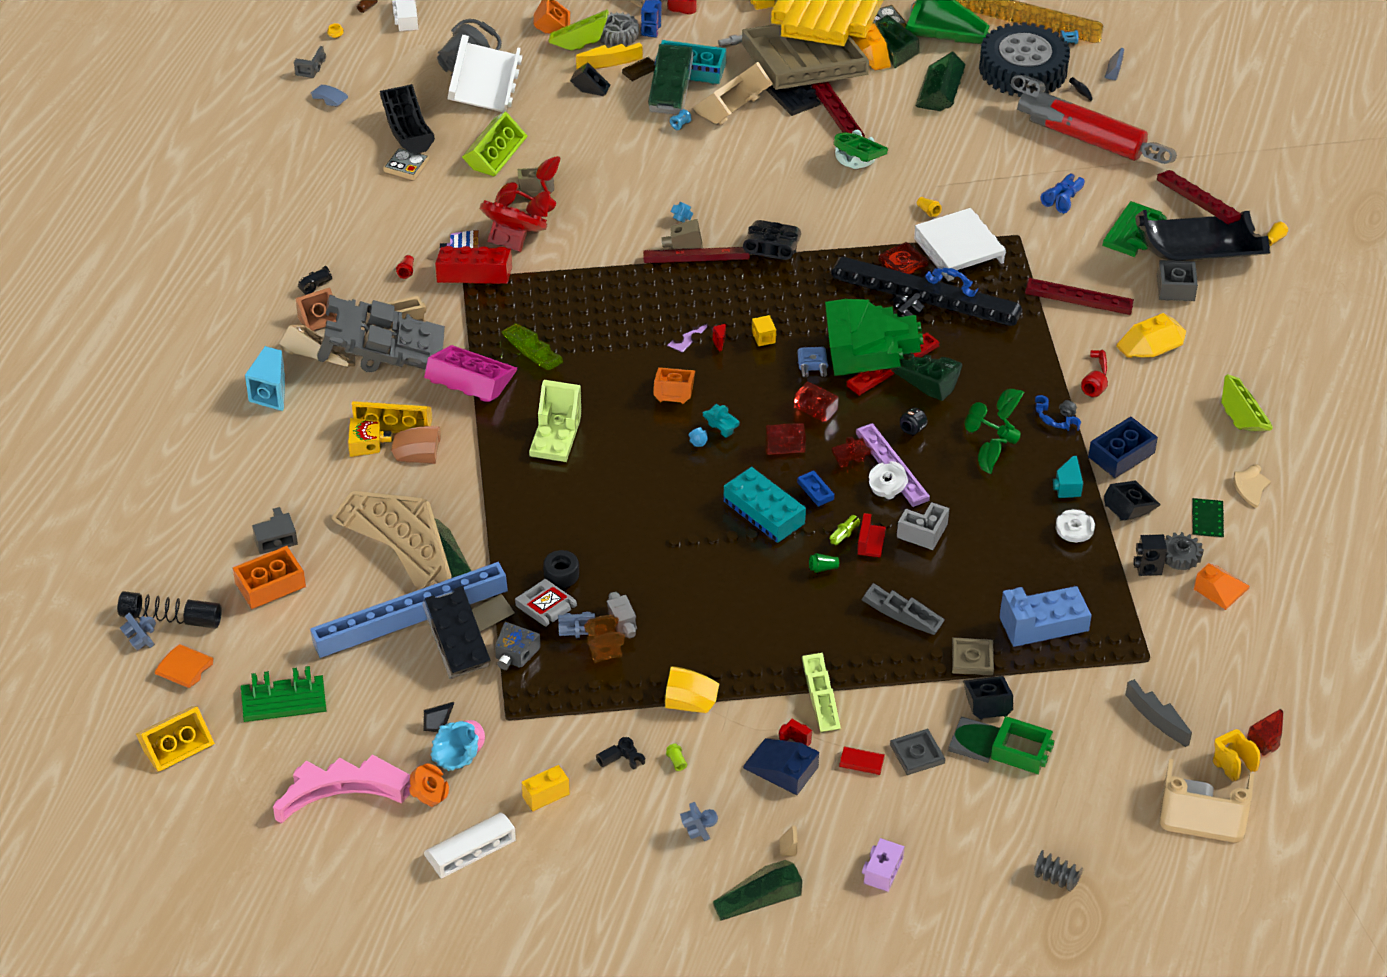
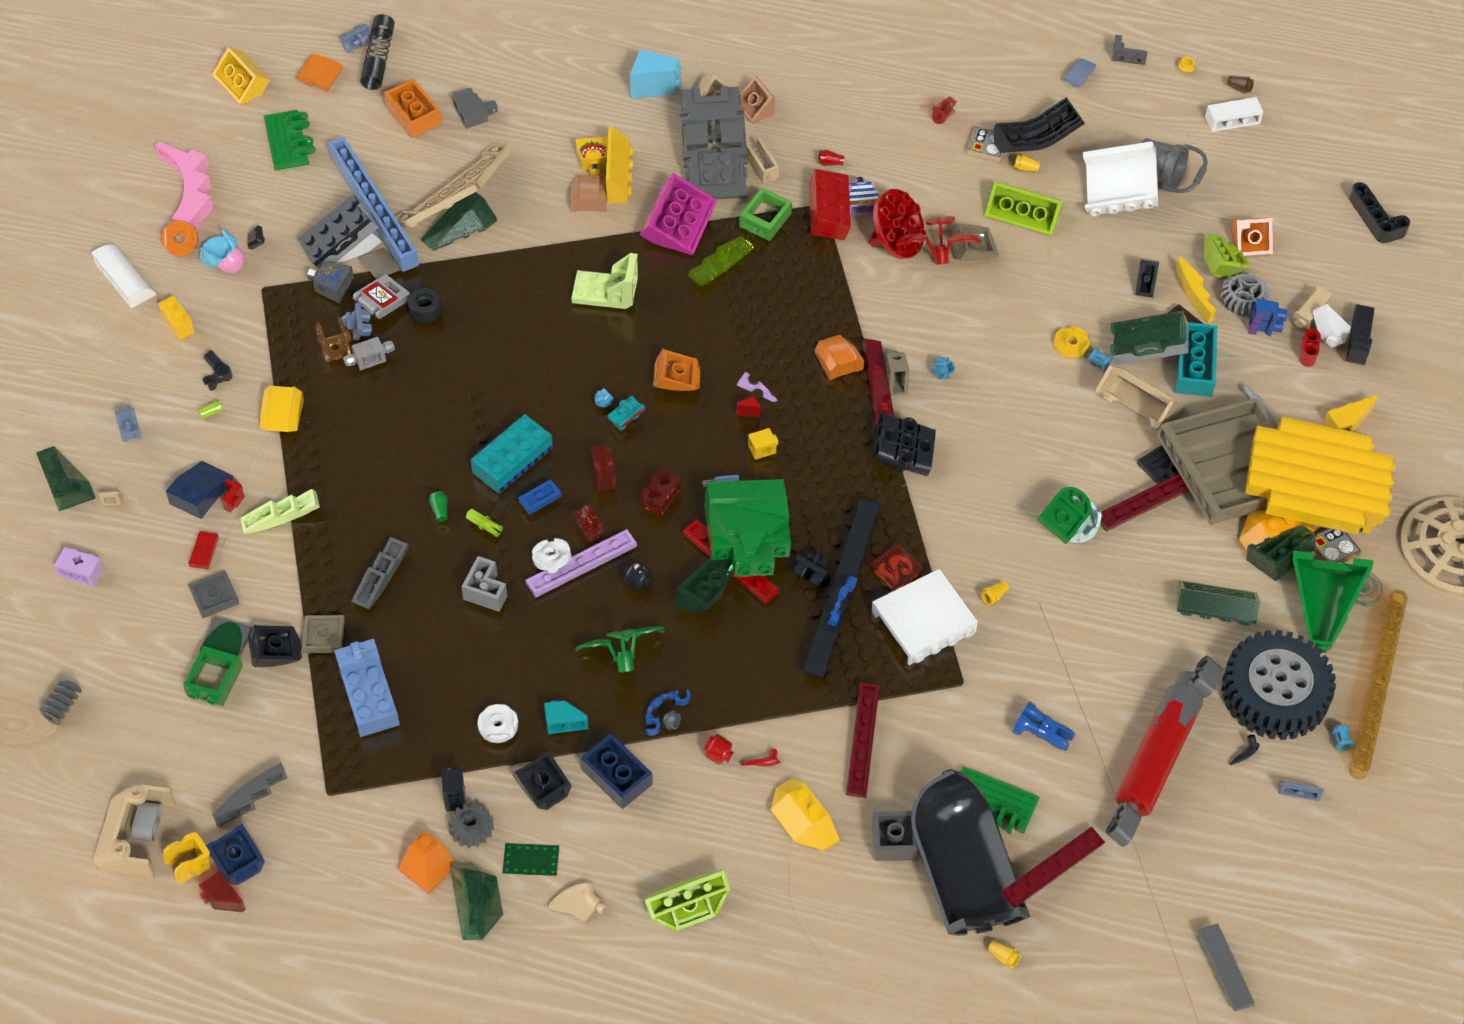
camera: 85 degrees right, 10 degrees up
(314, 279) = (802, 94): black connector -> none
(362, 180) = (943, 110): none -> clear red hips
(440, 141) = (1025, 163): none -> yellow cone
(485, 323) = (760, 227): none -> bright green window
(655, 143) = (1069, 350): none -> yellow tile
(663, 275) = (838, 356): none -> orange slope
(870, 538) = (476, 543): red panel -> none
(1220, 718) = (236, 856): none -> dark blue slope
(1254, 550) = (476, 899): none -> clear green wedge
(1282, 120) = (1225, 966): none -> dark grey slope

